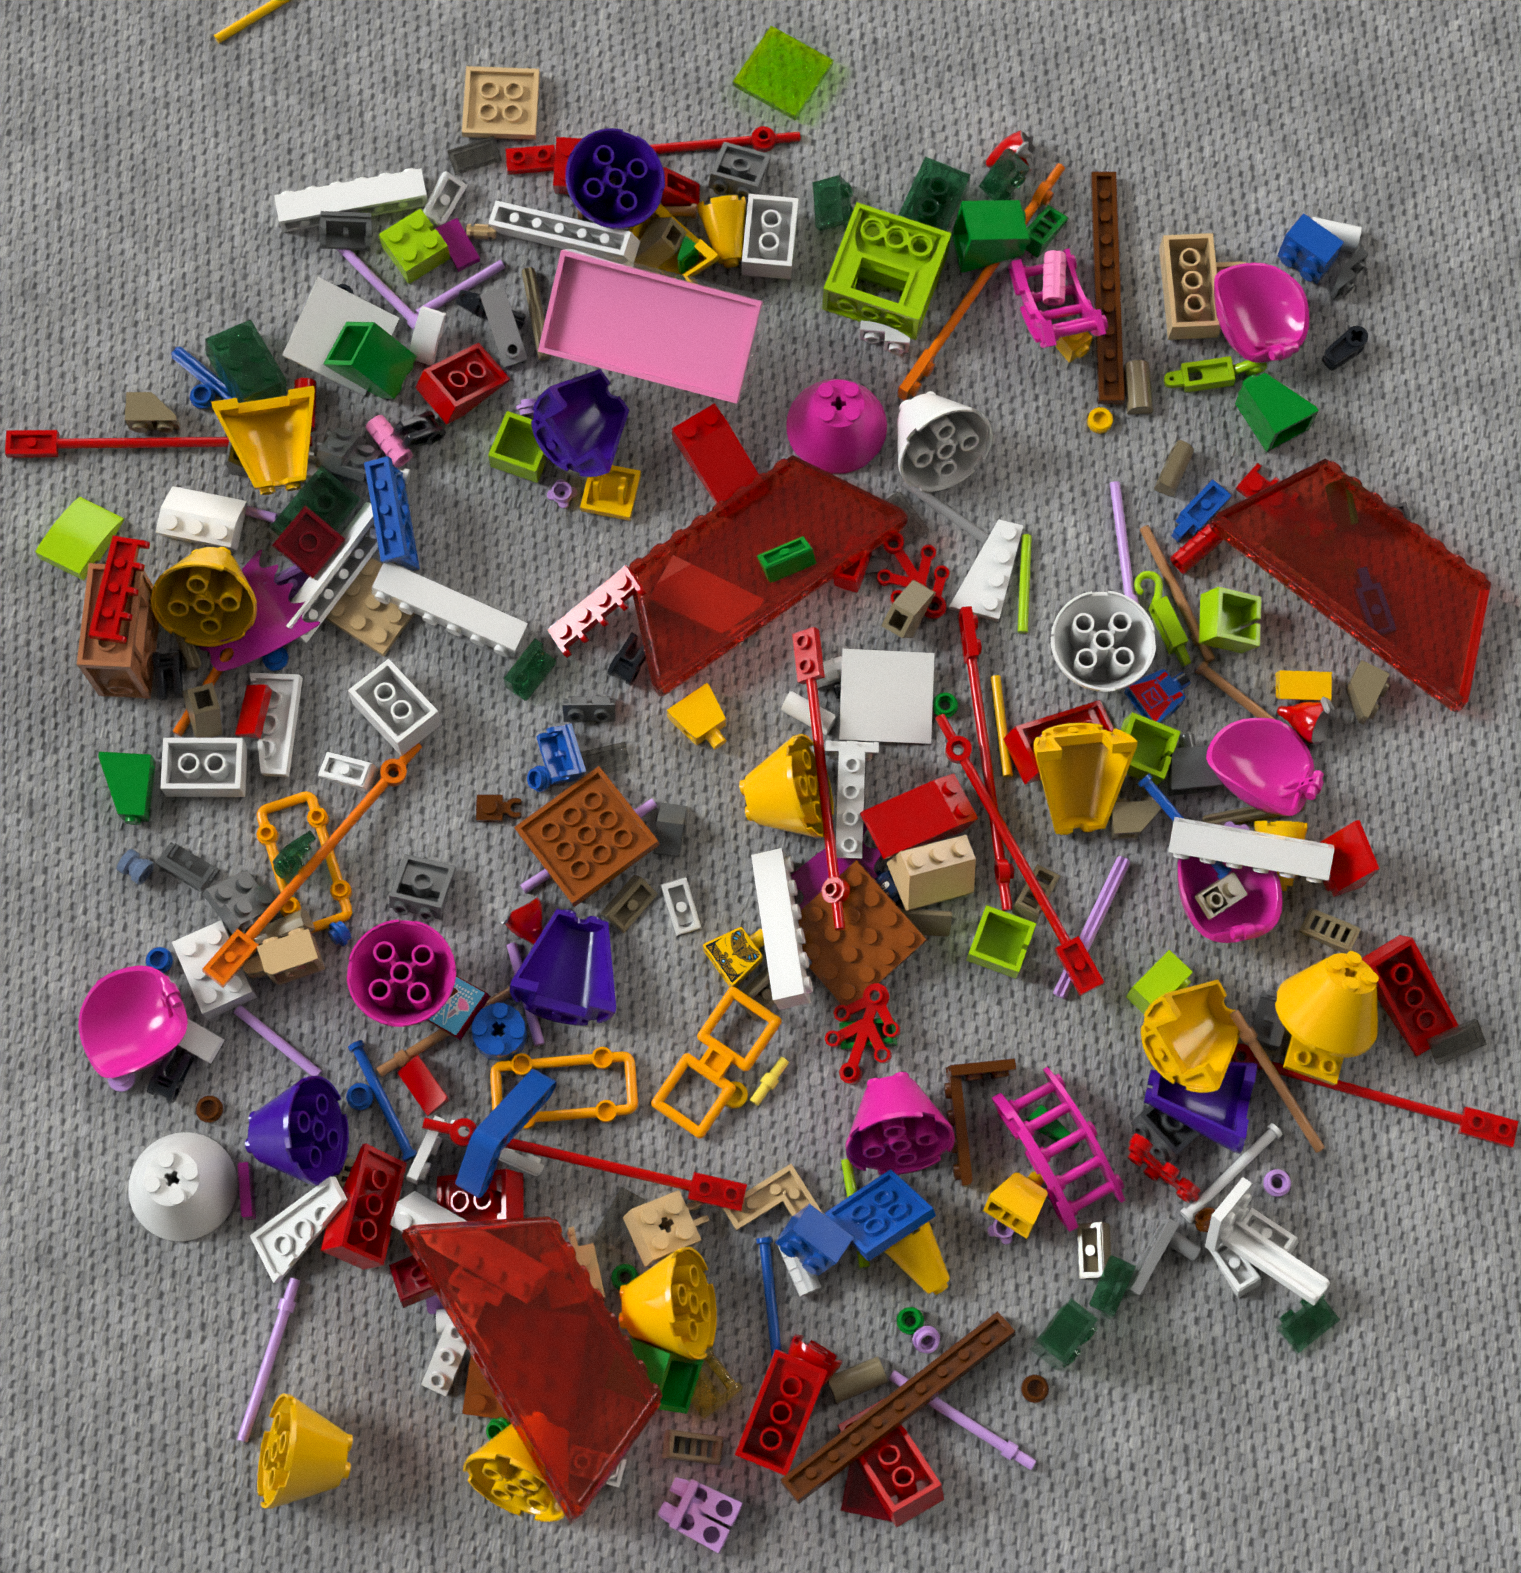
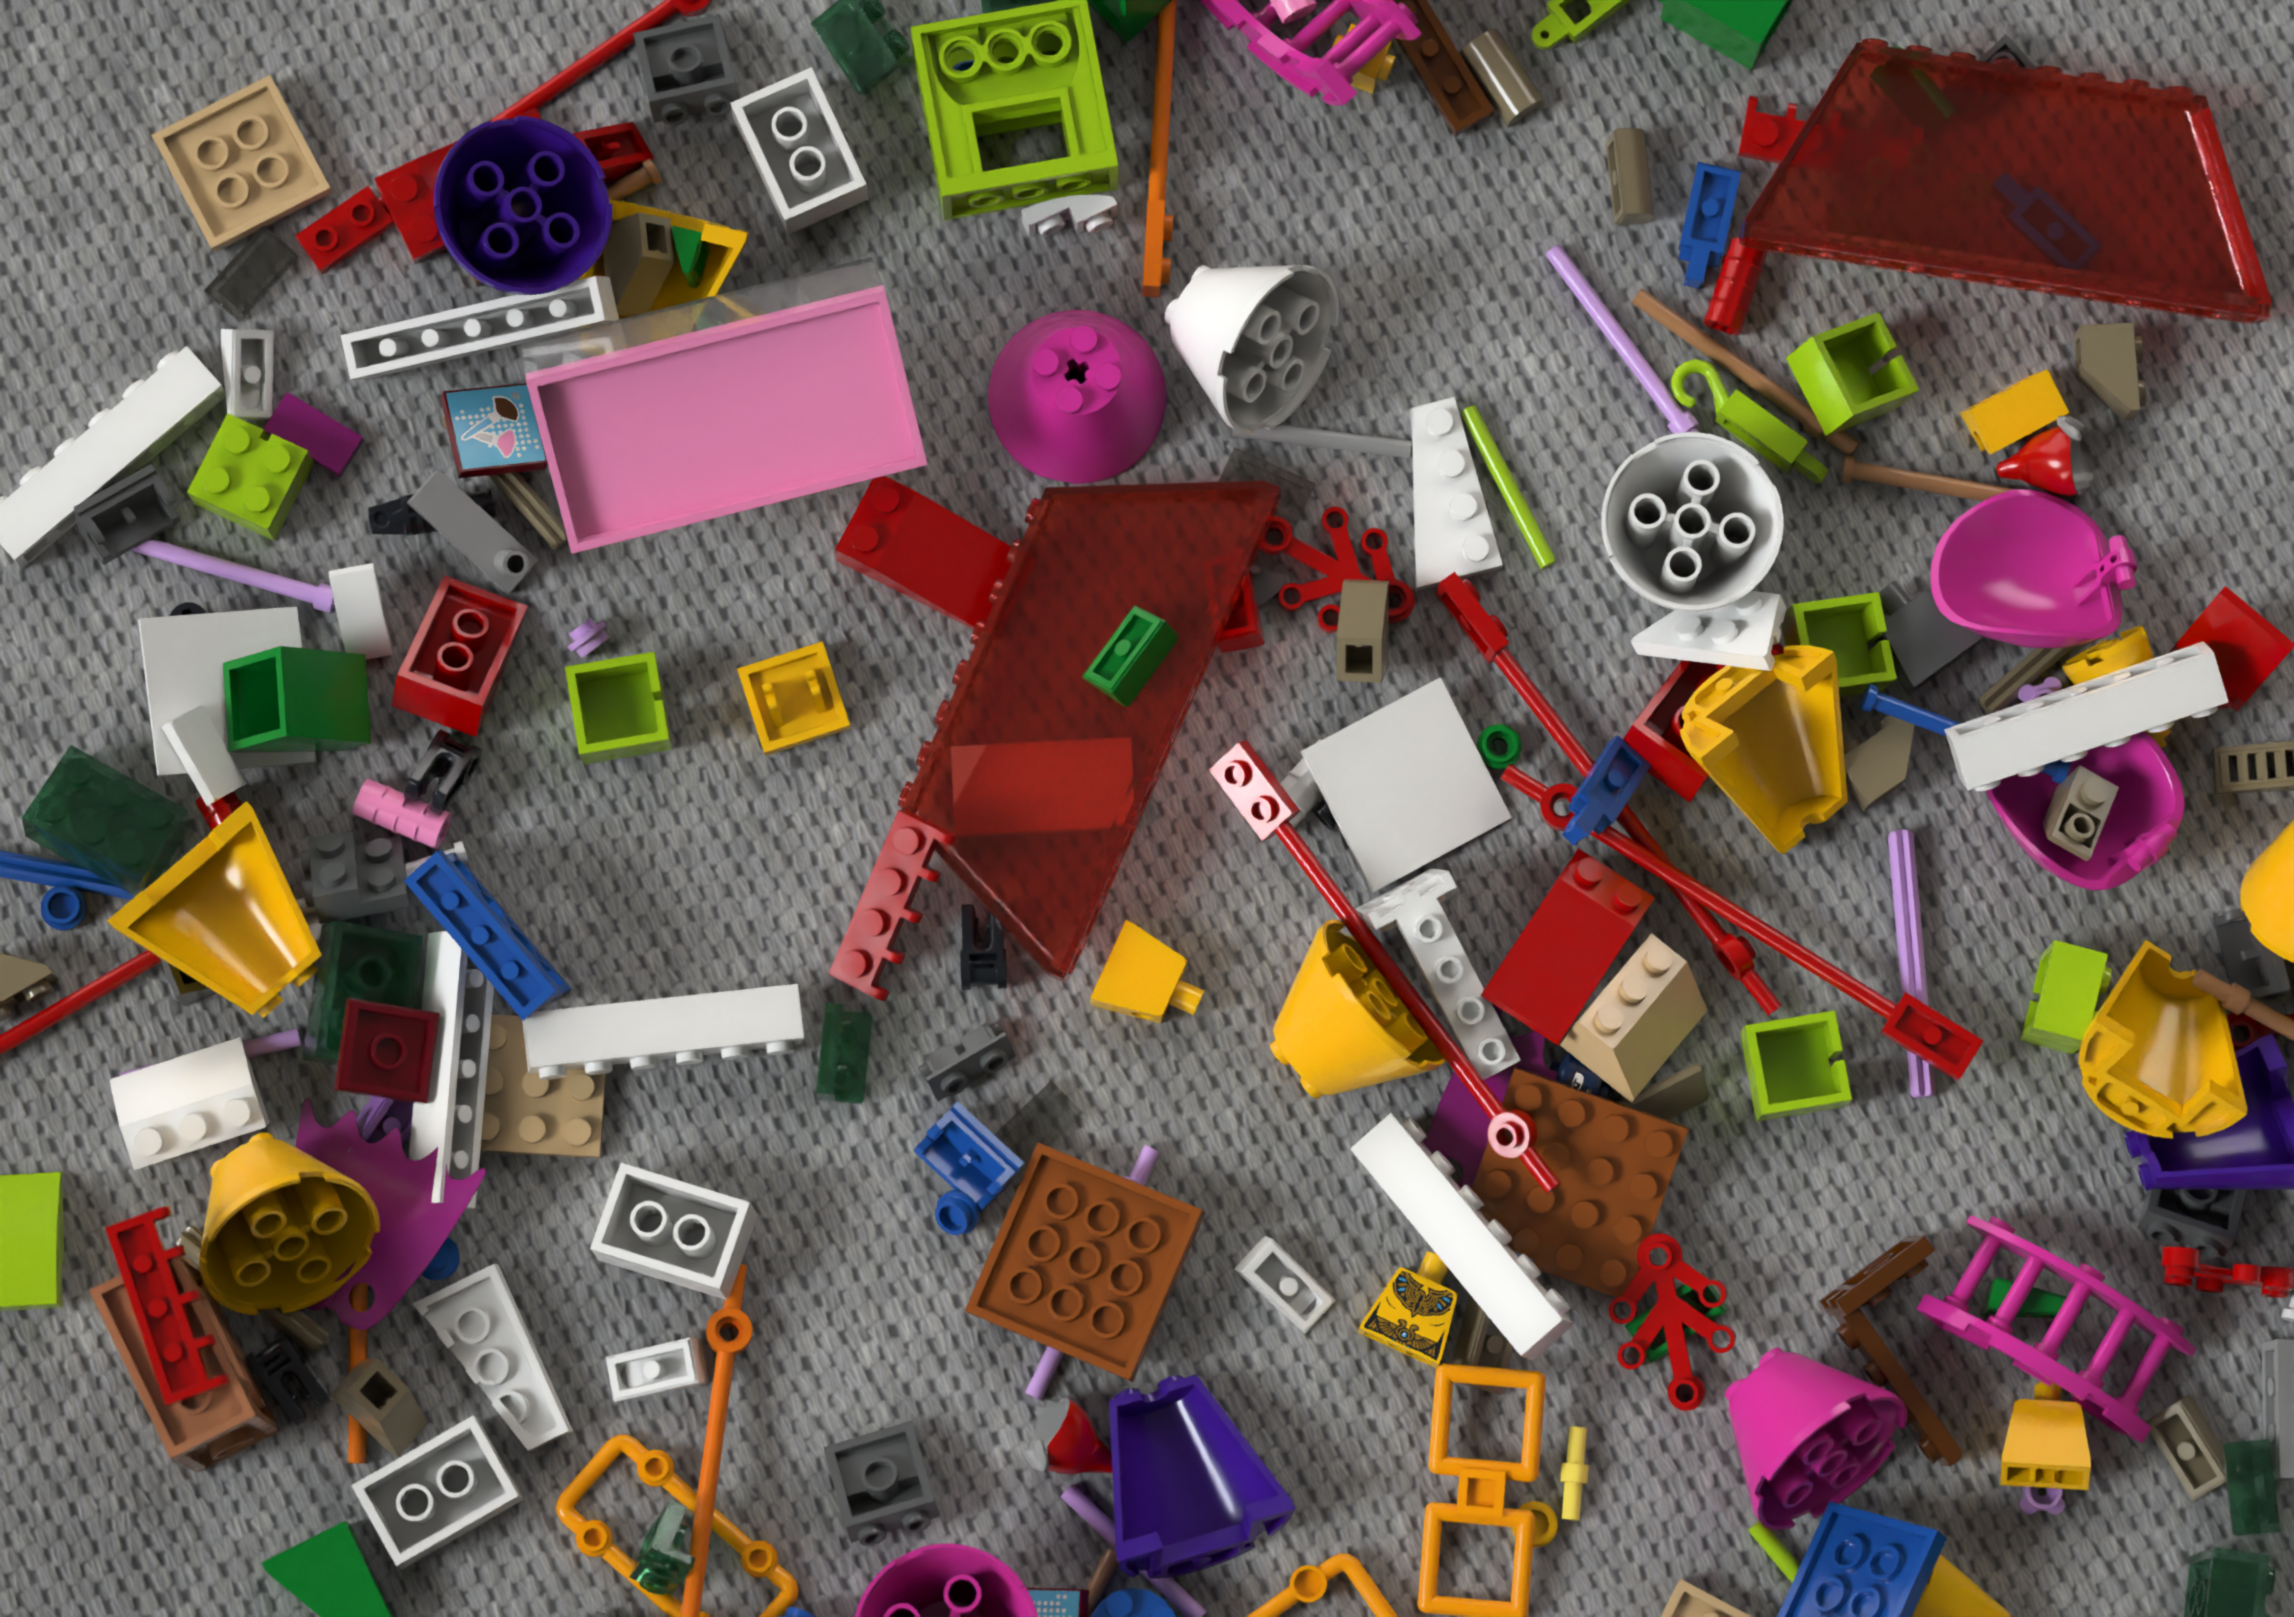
camera: 30 degrees left, 5 degrees up
(253, 711) = (458, 1361): red slope -> none
(309, 357) = (204, 755): none -> white slope
(465, 285) = (361, 503): lavender bar -> none
(481, 231) = (337, 393): tan piece -> none
(492, 808) = (912, 1300): reddish brown plate -> none
(535, 284) = (493, 430): none -> tile
(562, 486) = (714, 733): lavender plate -> none
(580, 424) = (698, 627): dark purple cone -> none
(629, 903) = (1205, 1325): dark tan slope -> none
(670, 829) = (1200, 1174): dark grey slope -> none
(725, 227) = (722, 176): yellow cone -> none
(799, 709) = (1288, 879): white brick -> none
(984, 751) = (1605, 790): none -> blue hinge
(1001, 725) = (1592, 717): yellow bar -> none
(1028, 908) = (1806, 996): dark tan slope -> none
(1087, 706) = (1727, 636): none -> white wing
(1100, 420) = (1473, 161): yellow tile -> none
(1158, 694) = (1813, 550): torso -> none

